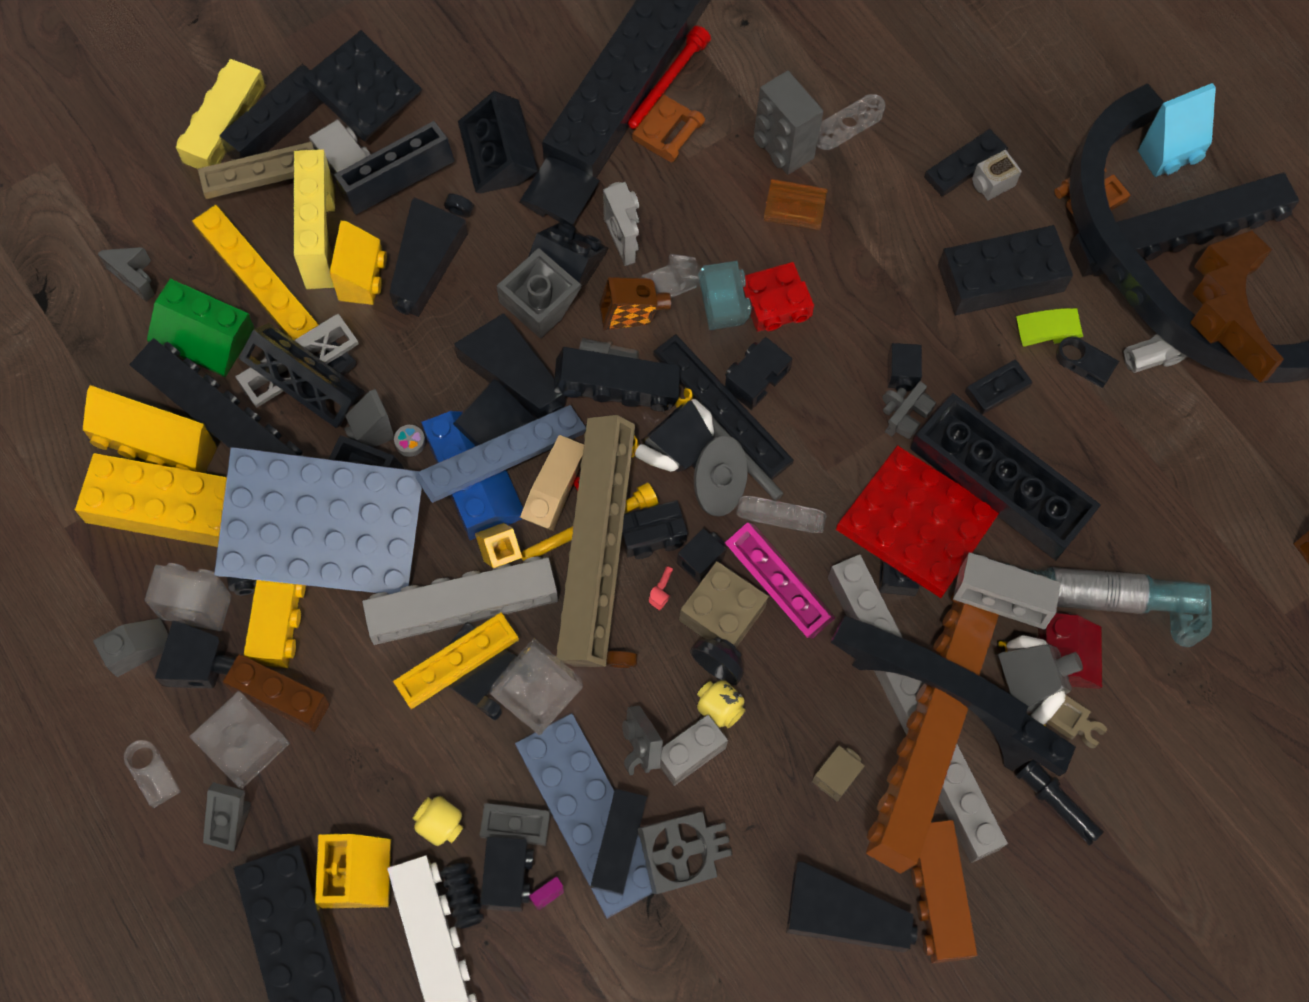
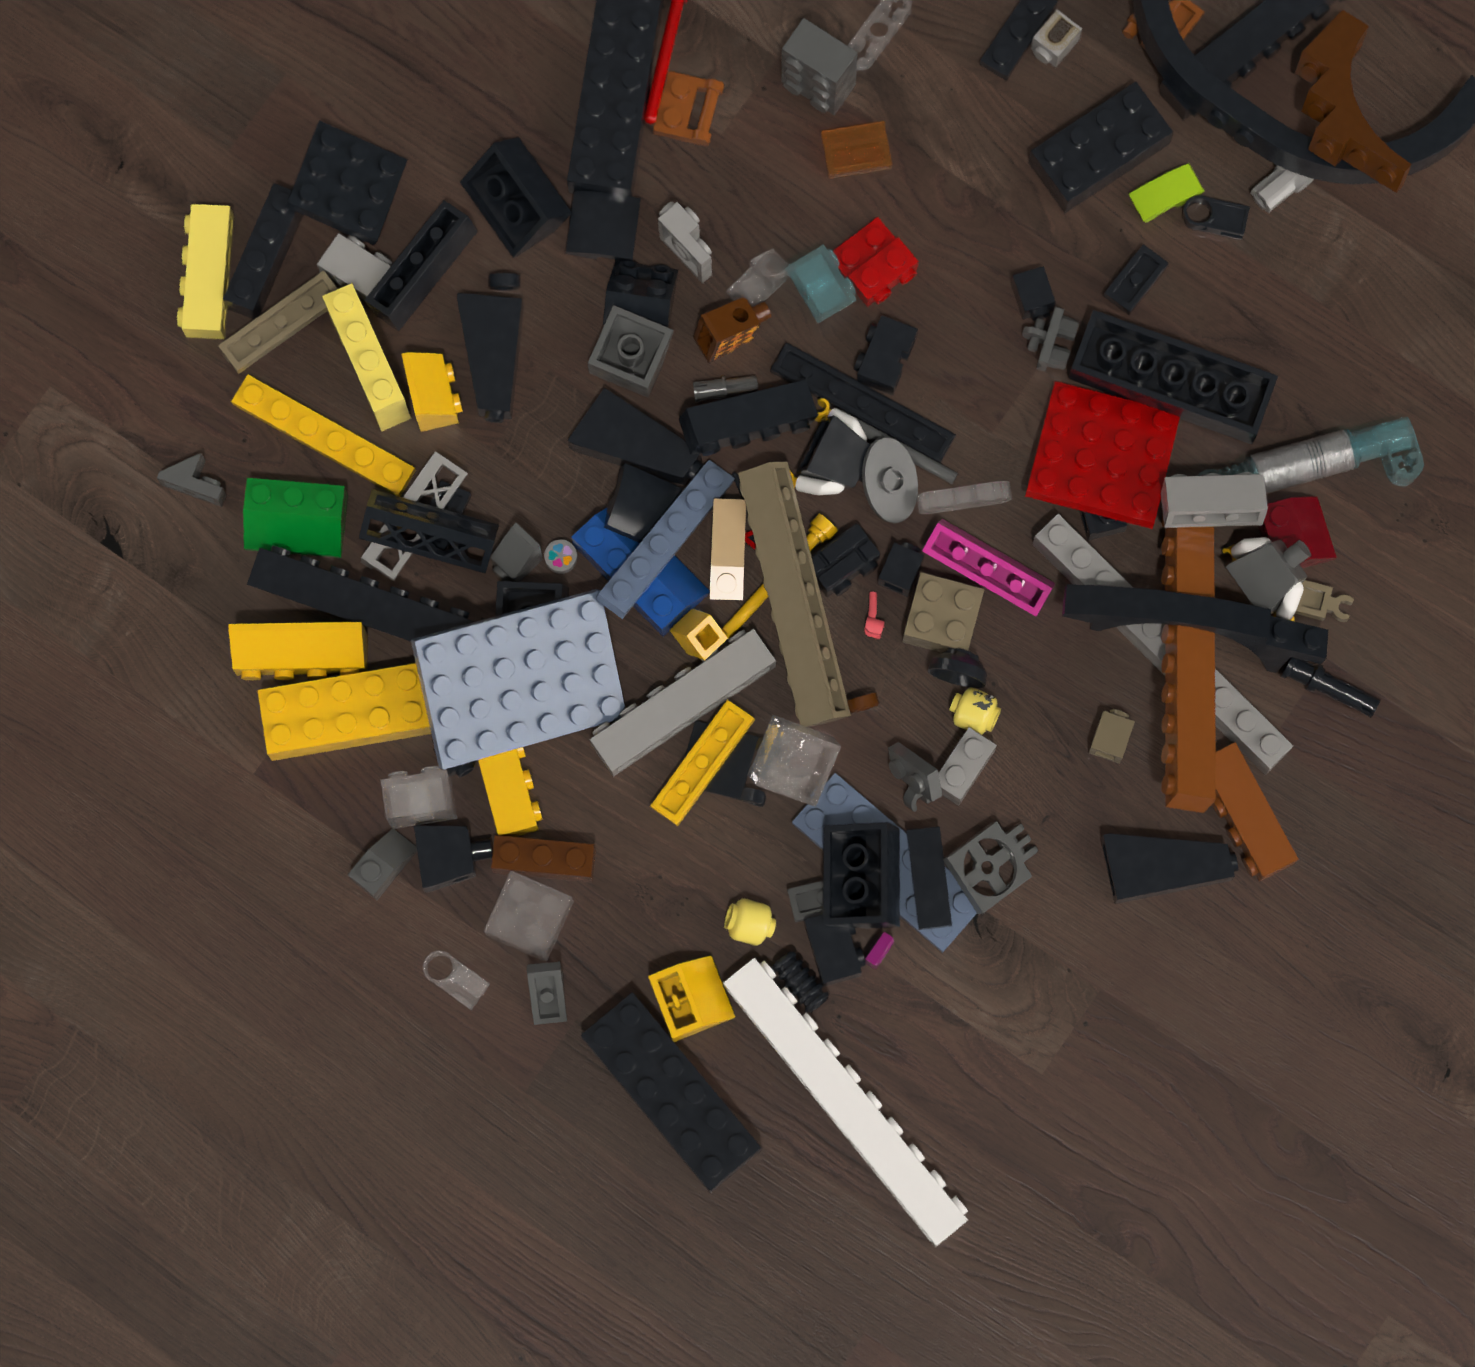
camera: 15 degrees left, 10 degrees up
(555, 815) = (862, 875): none -> black slope

